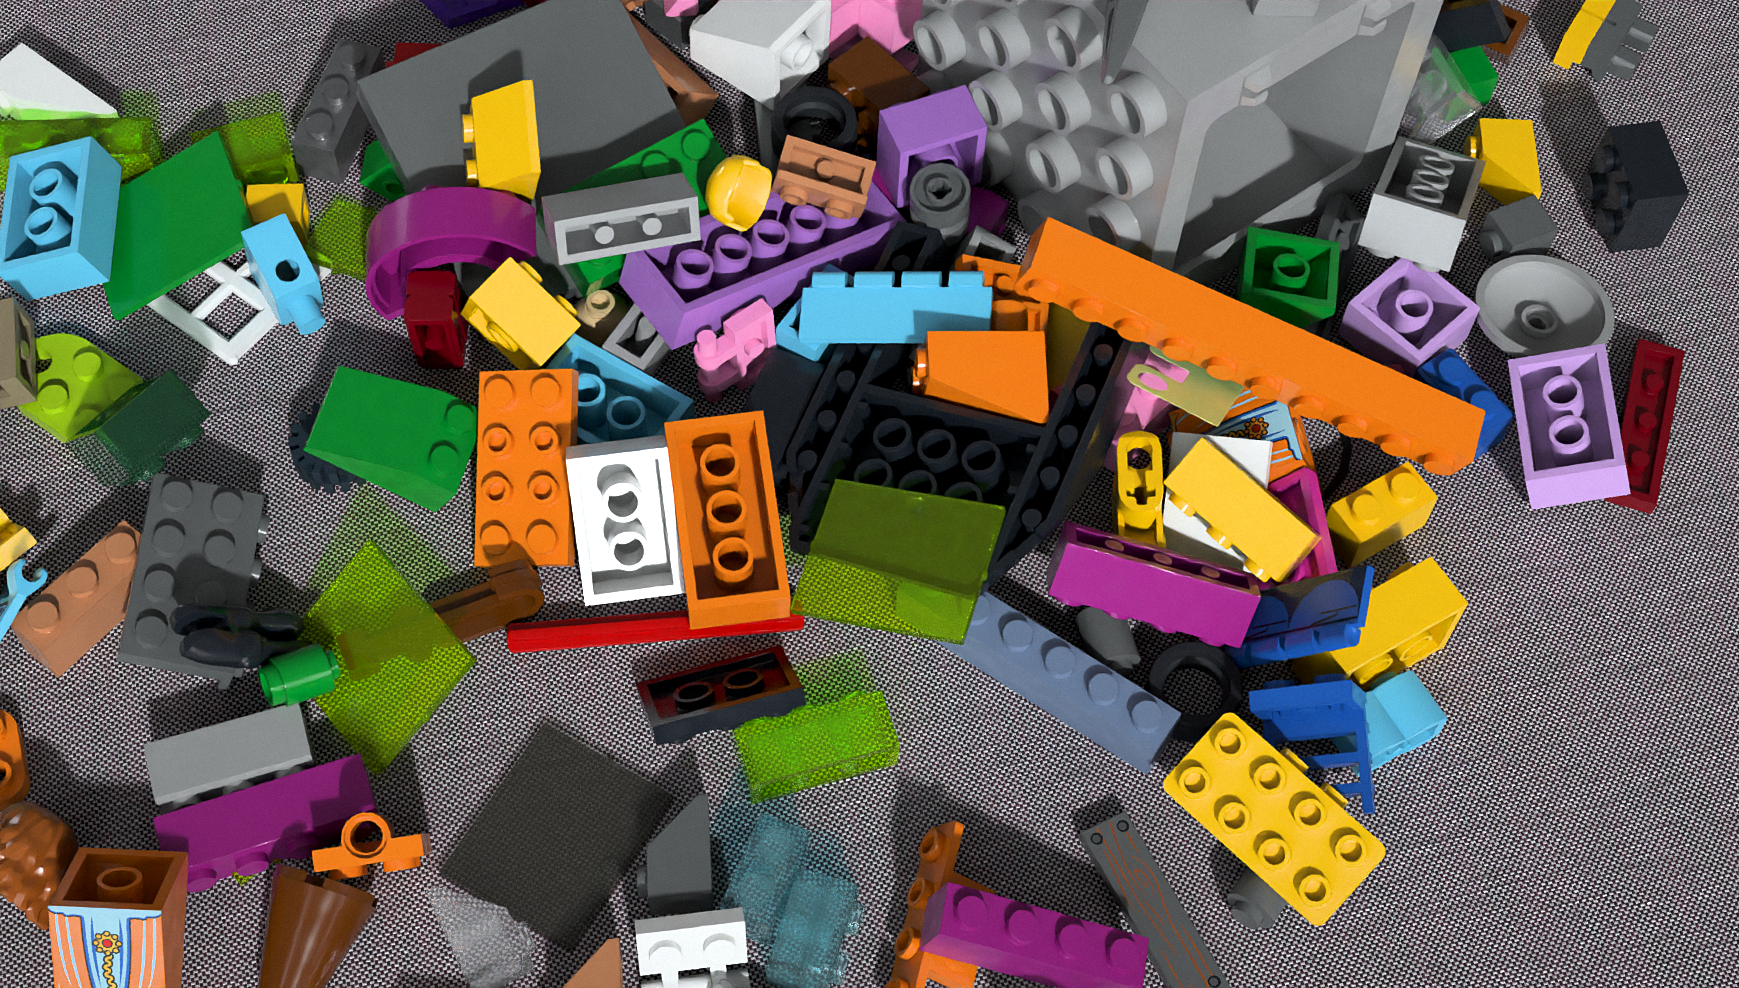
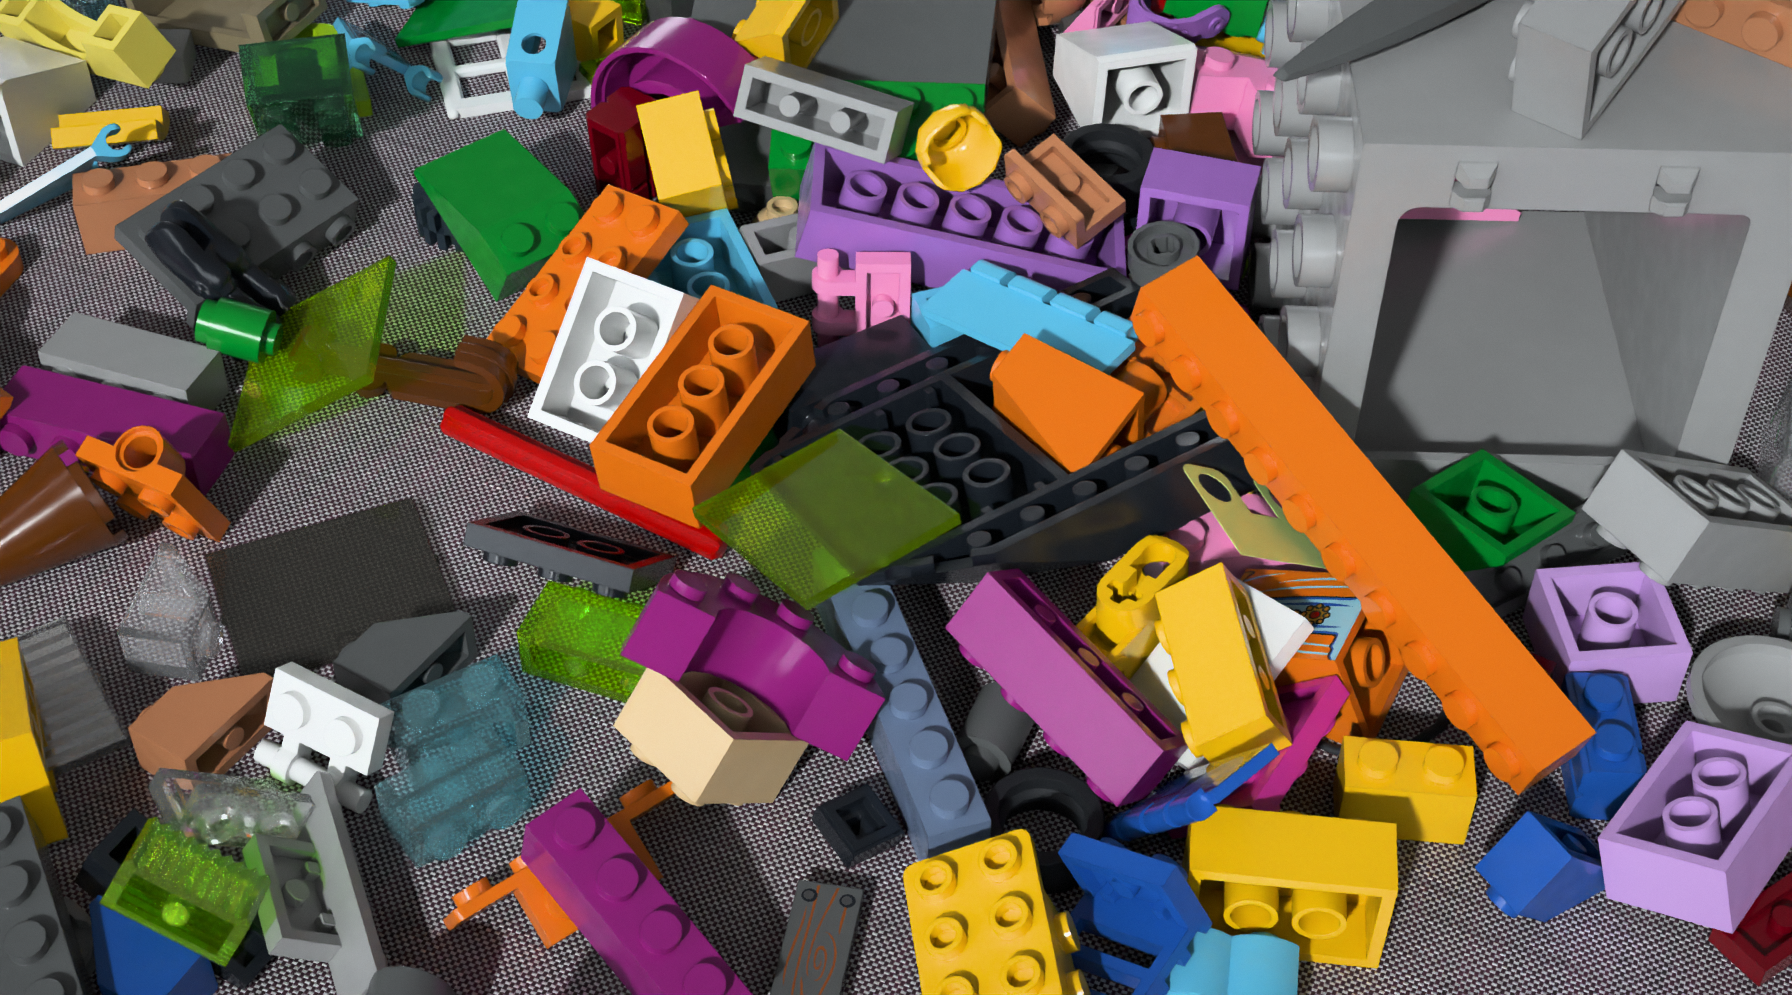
camera: 40 degrees right, 15 degrees down
(131, 345) = (366, 46): none -> medium azure flag
(951, 686) = (761, 647): none -> magenta brick
(954, 774) = (709, 738): none -> tan brick
(1080, 768) = (857, 825): none -> black tile
(1494, 516) = (1541, 868): none -> blue slope

